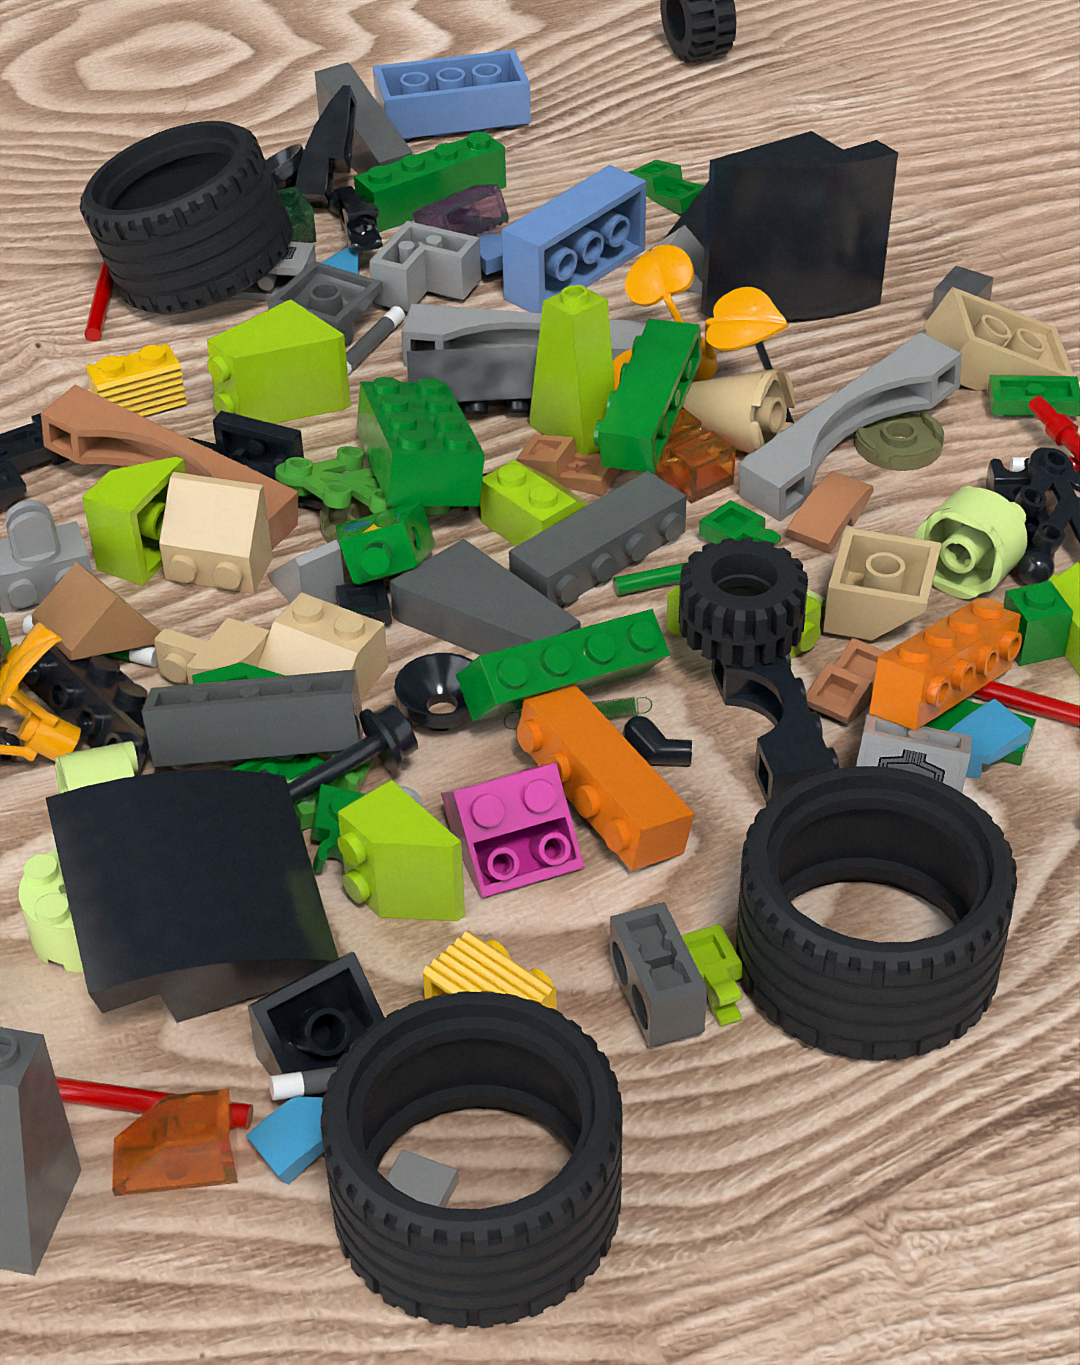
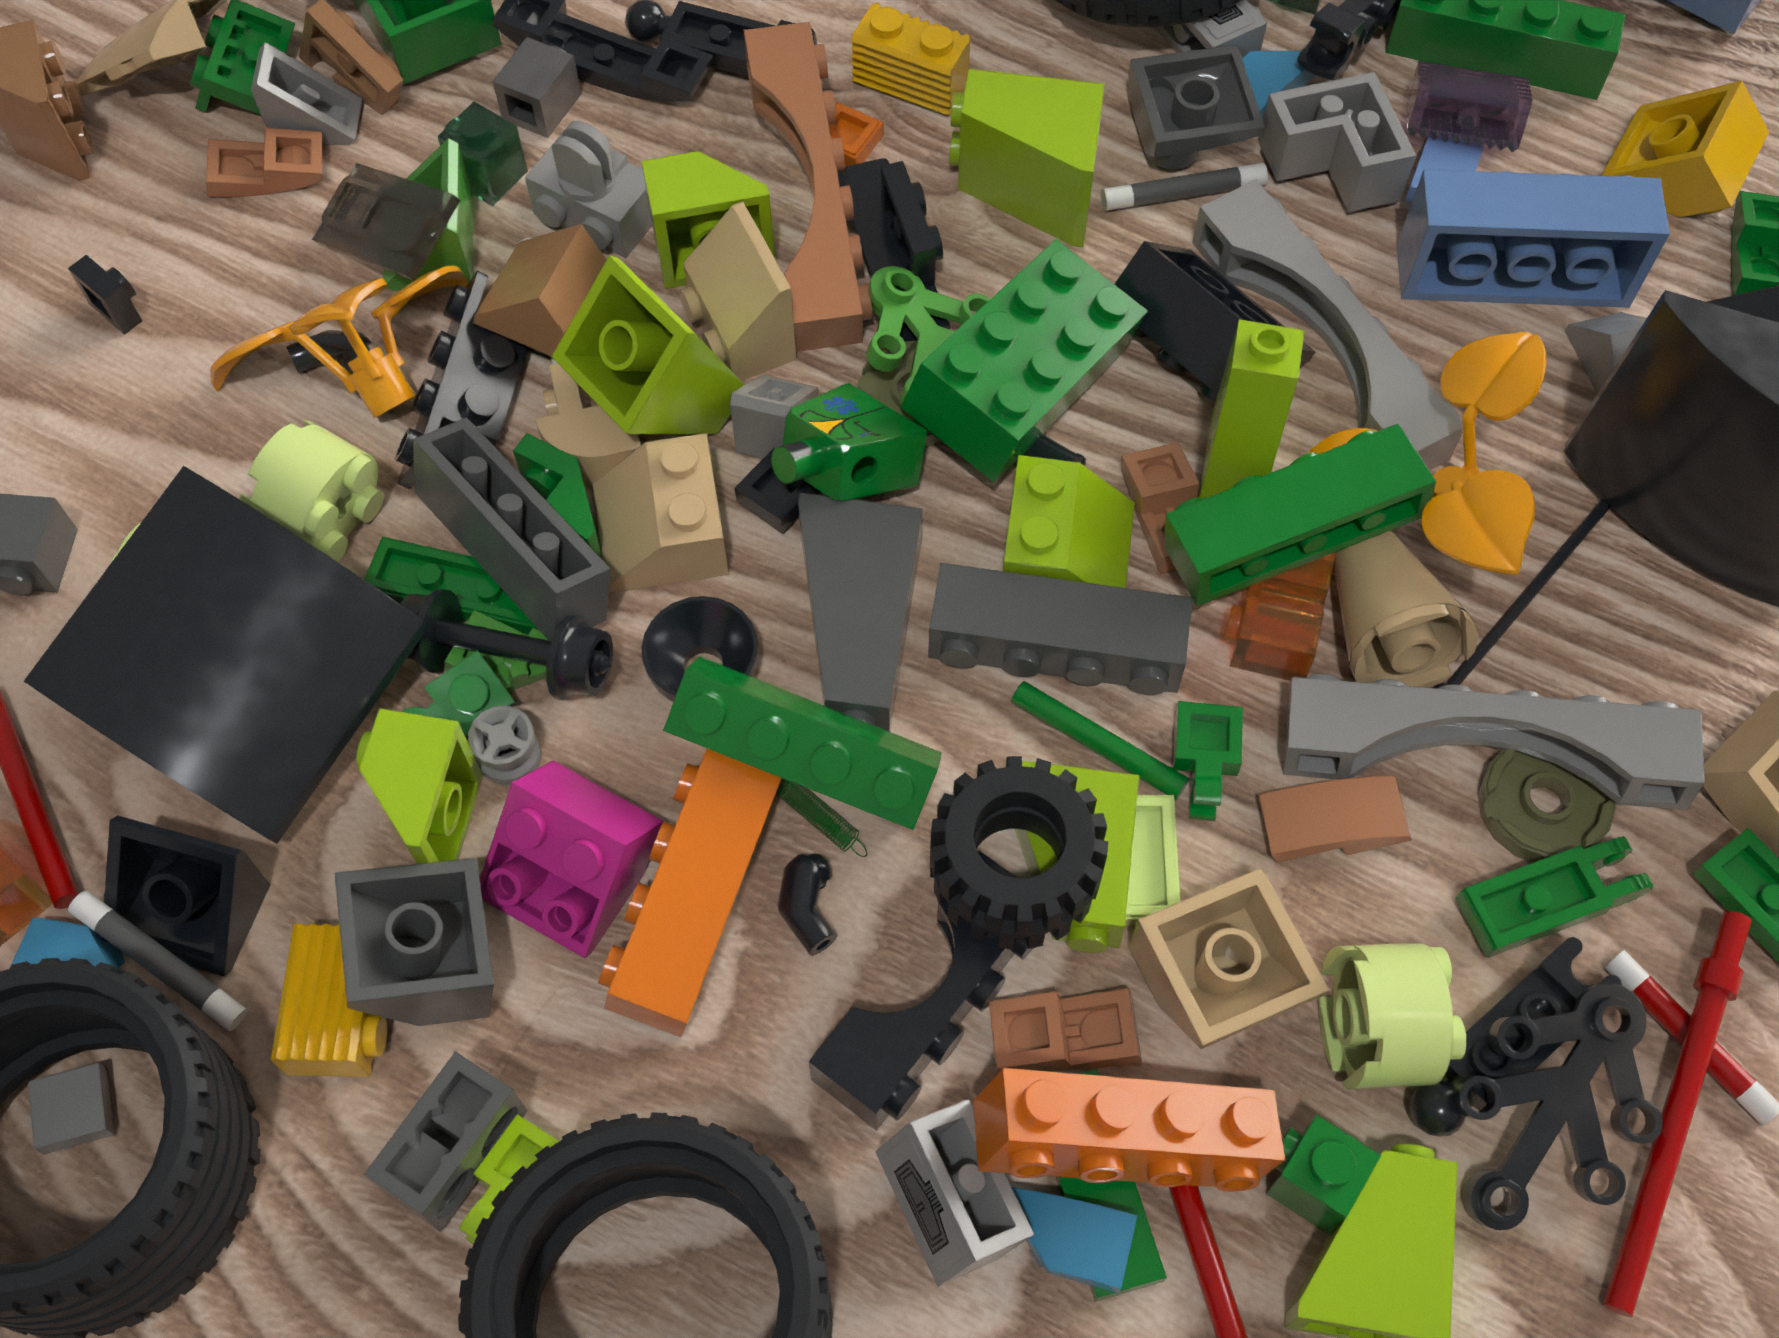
camera: 50 degrees right, 20 degrees up
(221, 567) = (644, 360): none -> lime slope
(511, 903) = (415, 942): none -> dark grey slope
(576, 158) = (1696, 145): none -> yellow slope
(954, 461) = (1548, 896): none -> green hinge

